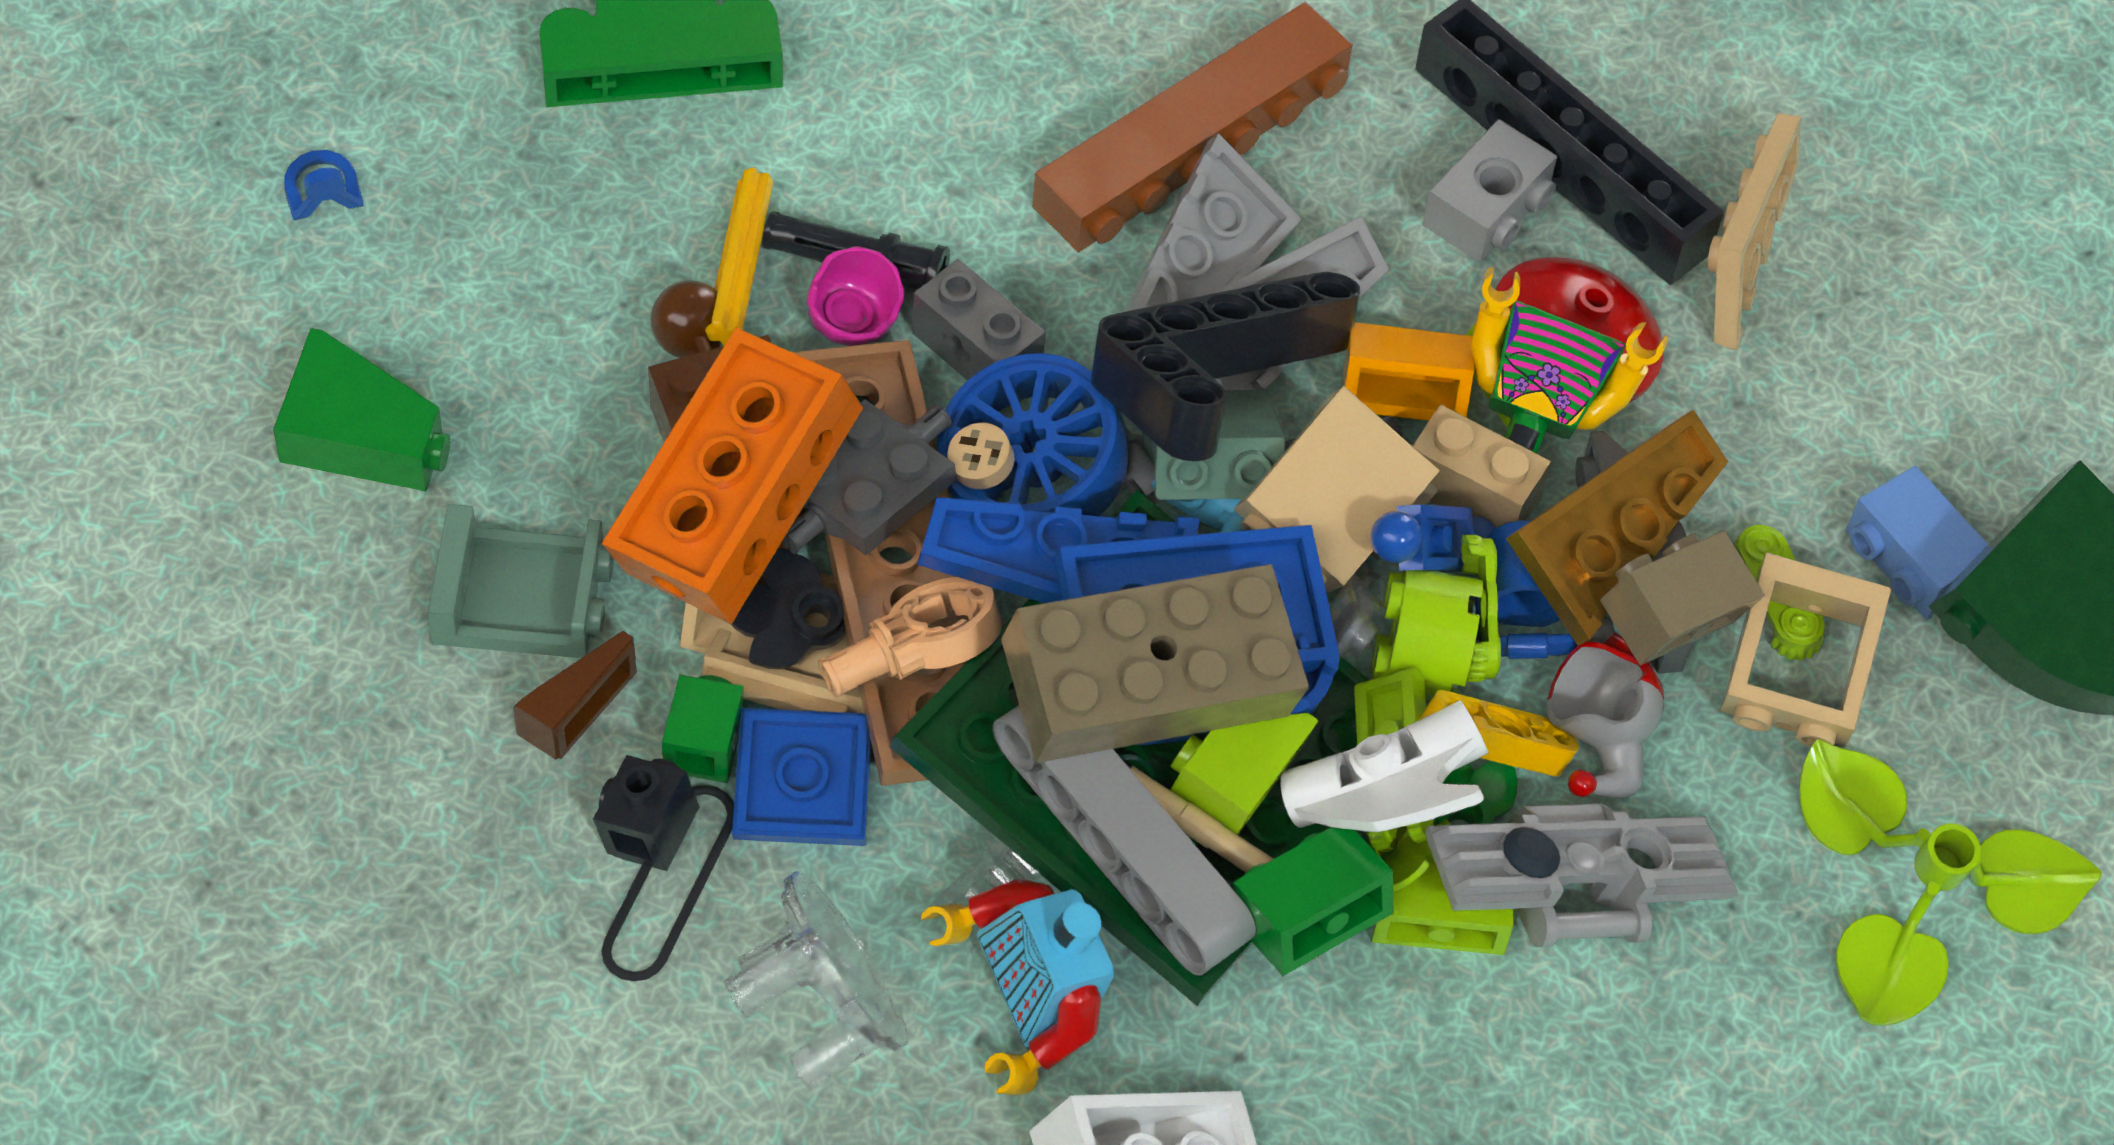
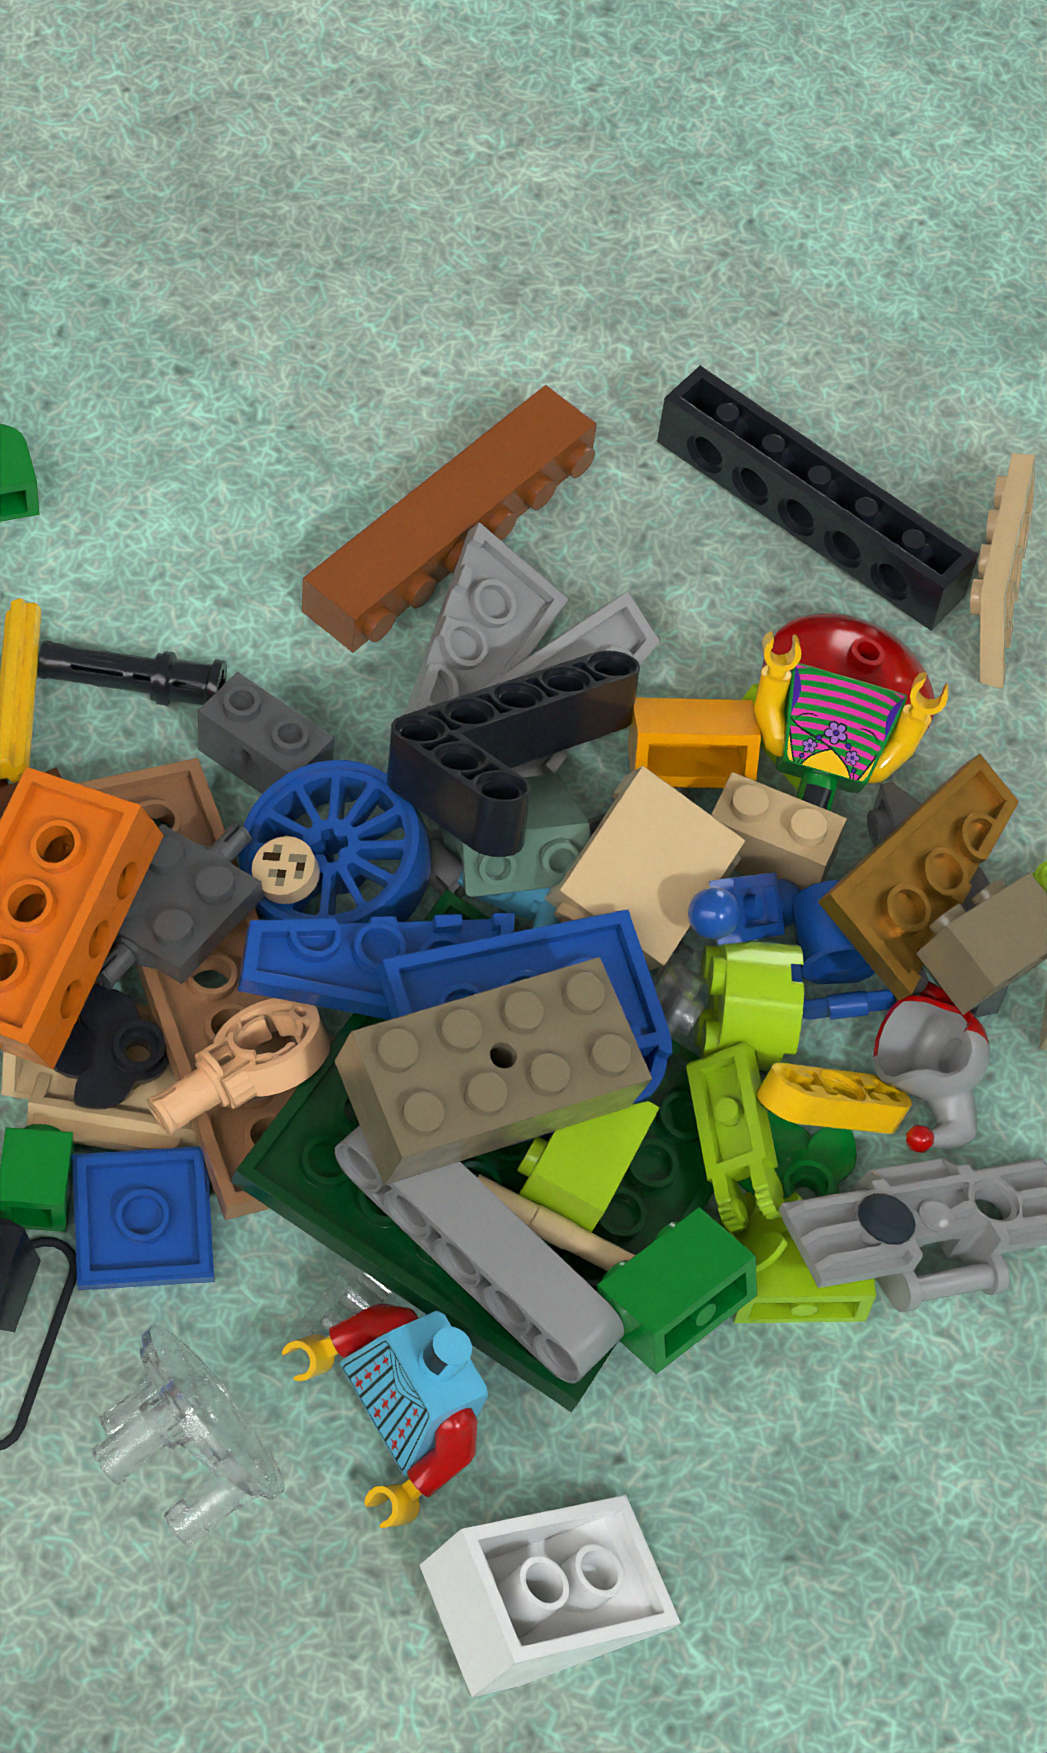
camera: 10 degrees left, 0 degrees up
(853, 287) = (135, 709): dark pink hair -> none
(1389, 777) = (739, 1160): white pin -> none
(1481, 560) = (794, 924): lime piece -> none
(1490, 191) = (747, 555): light grey brick -> none

